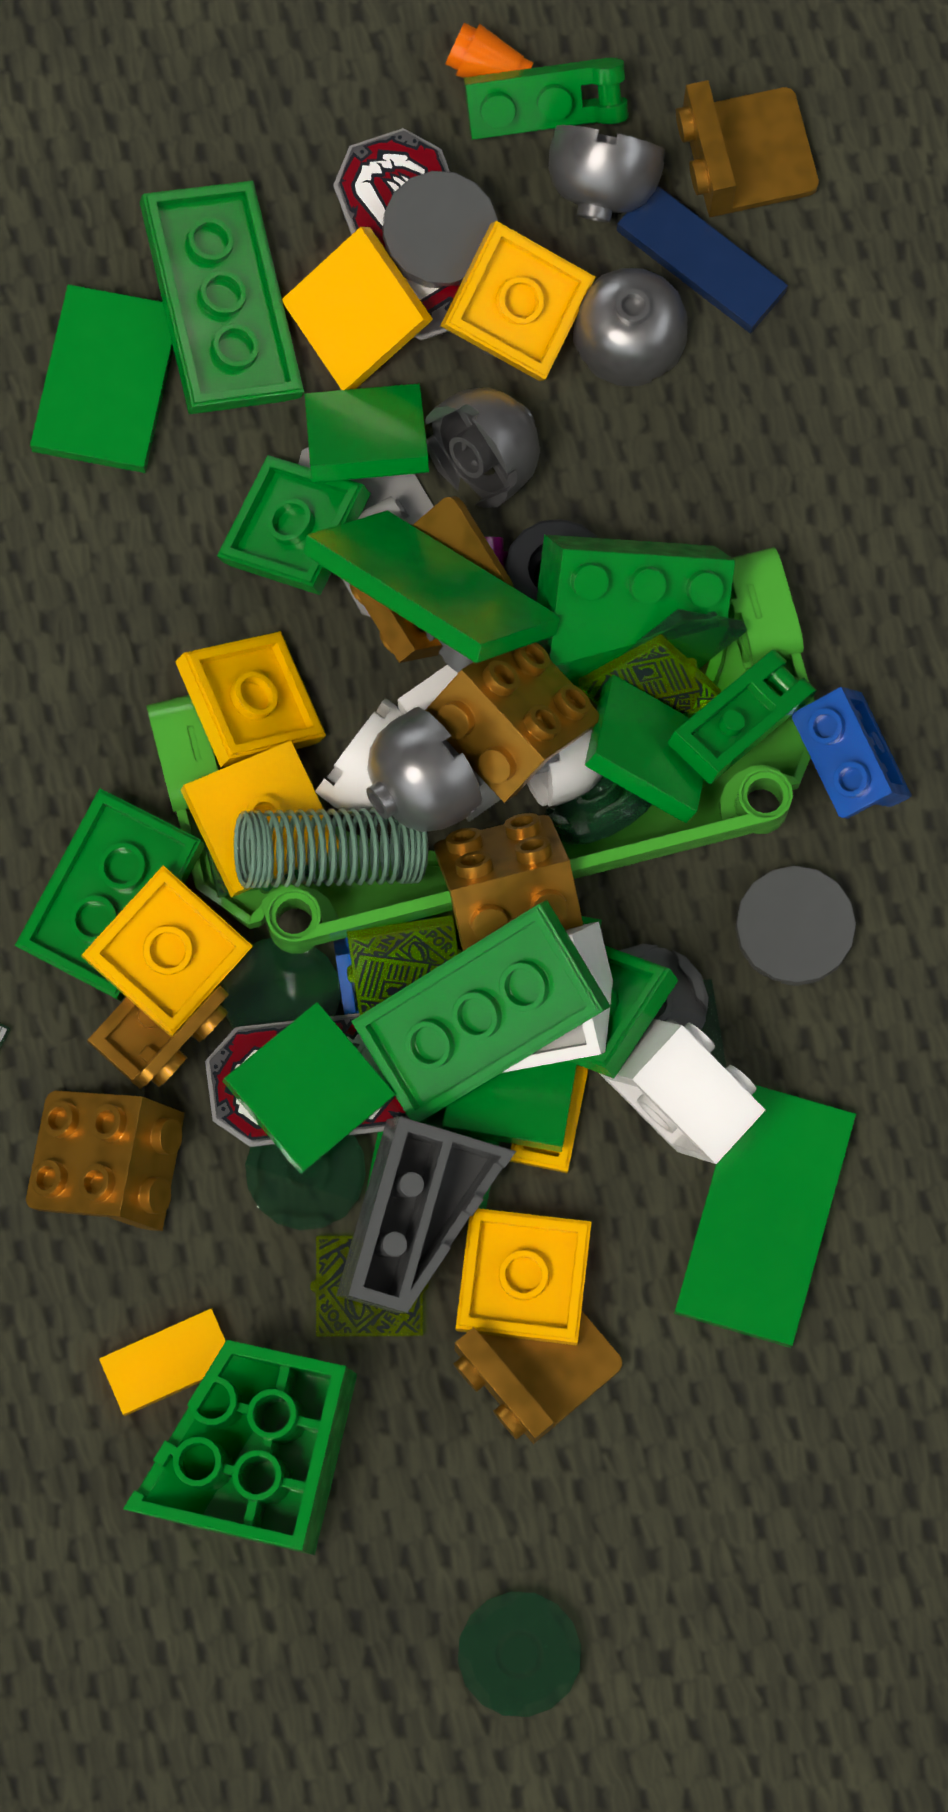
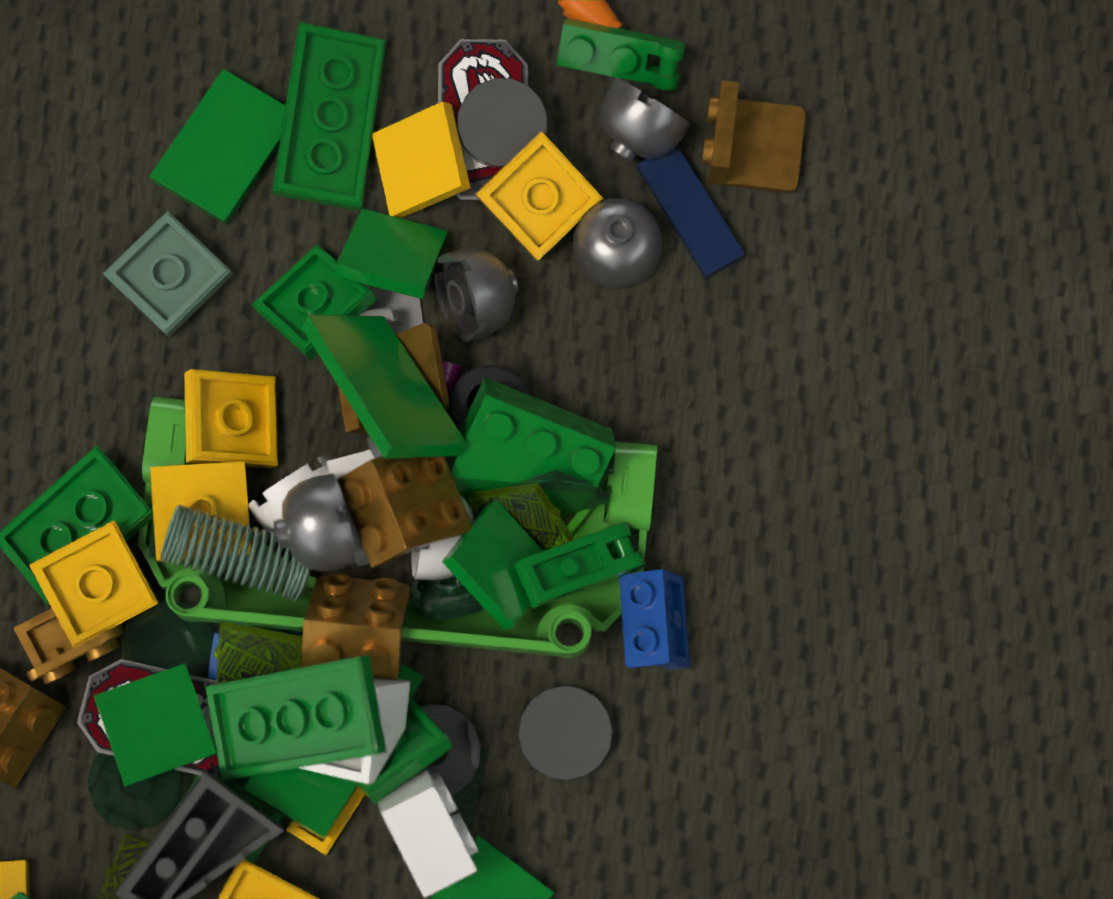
camera: 20 degrees right, 0 degrees up
(100, 555) = (168, 274): none -> sand green plate

